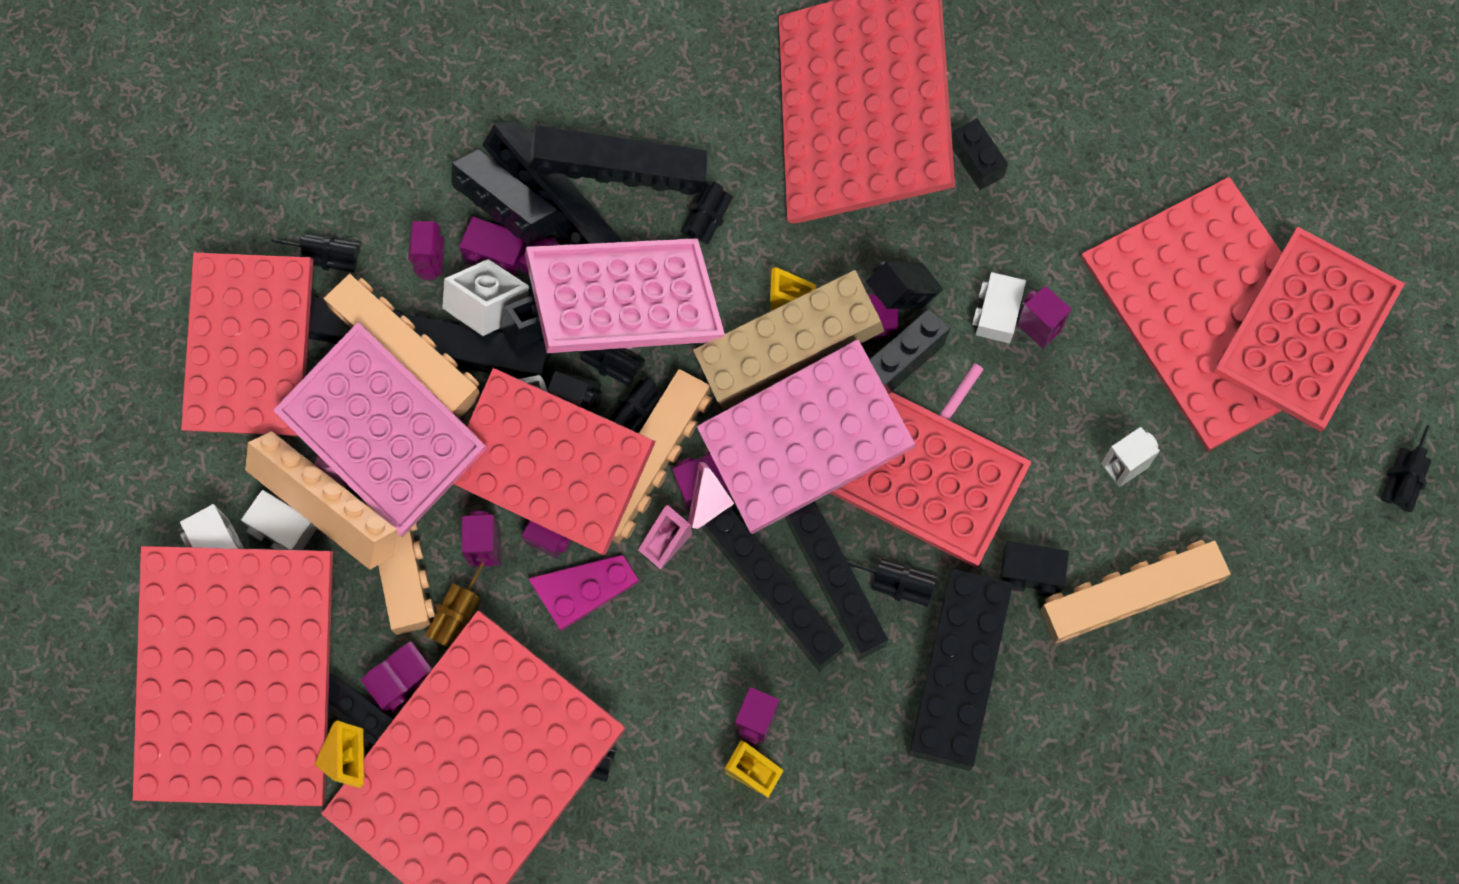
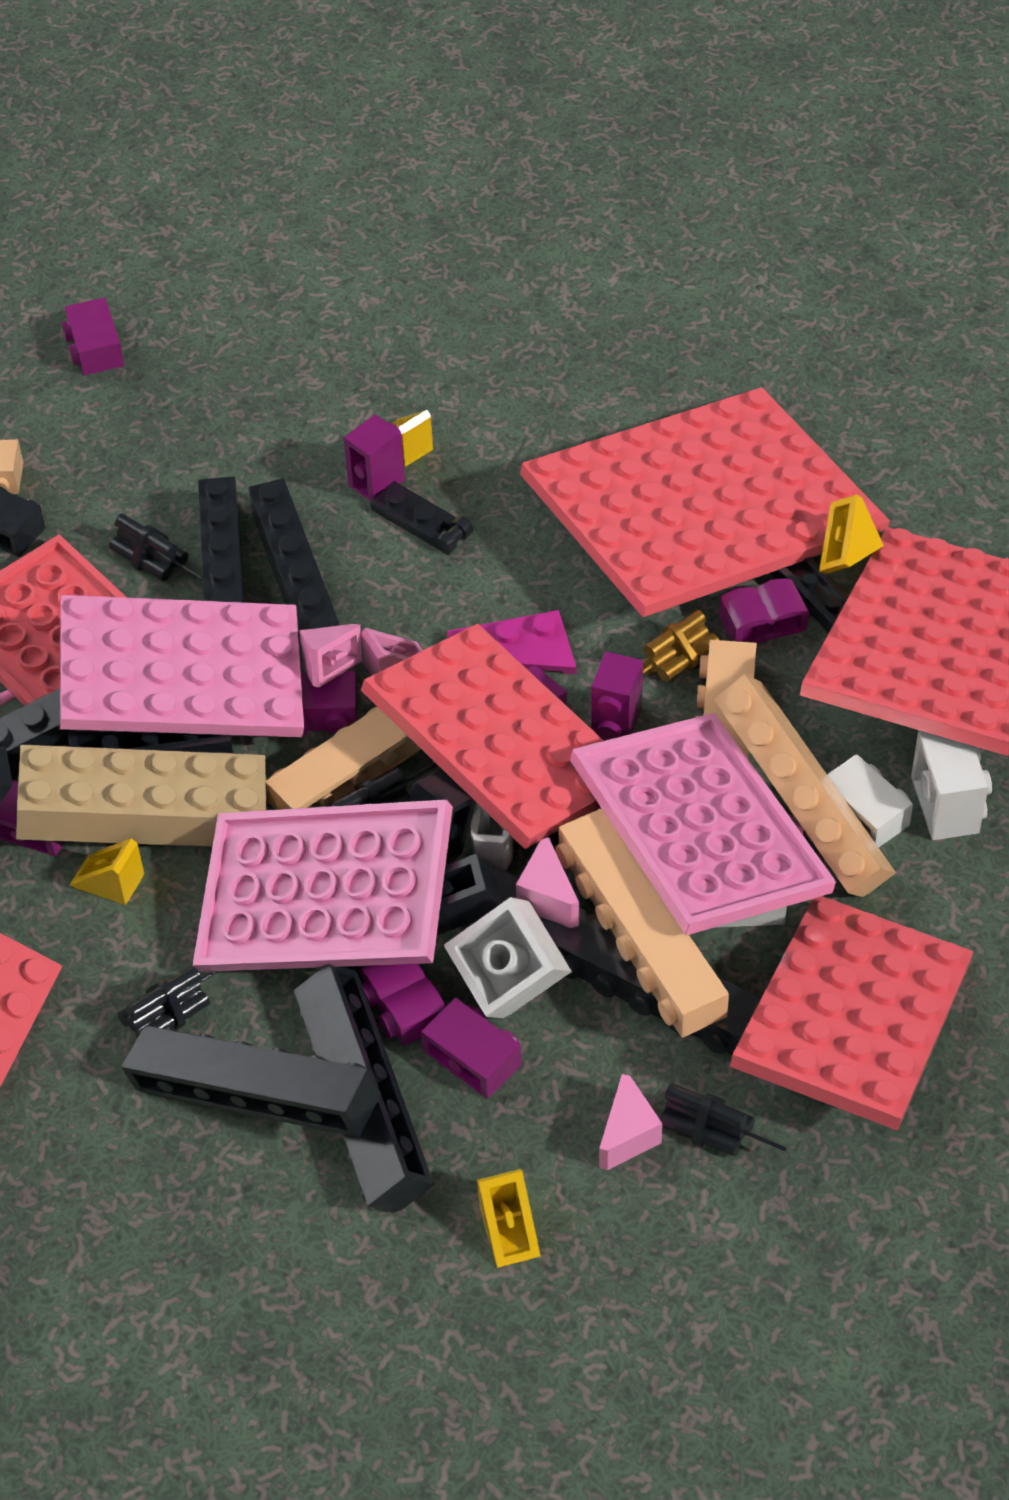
camera: 160 degrees left, 20 degrees down
(375, 226) = (630, 1126): none -> bright pink slope
(426, 249) = (566, 1053): magenta brick -> none
(433, 147) = (508, 1218): none -> yellow slope
(475, 350) = (548, 887): none -> bright pink slope
(503, 197) = (433, 1089): black brick -> none
(703, 690) = (421, 517): none -> black plate
(960, 670) = (134, 453): black brick -> none
(1066, 791) = (93, 336): none -> magenta brick

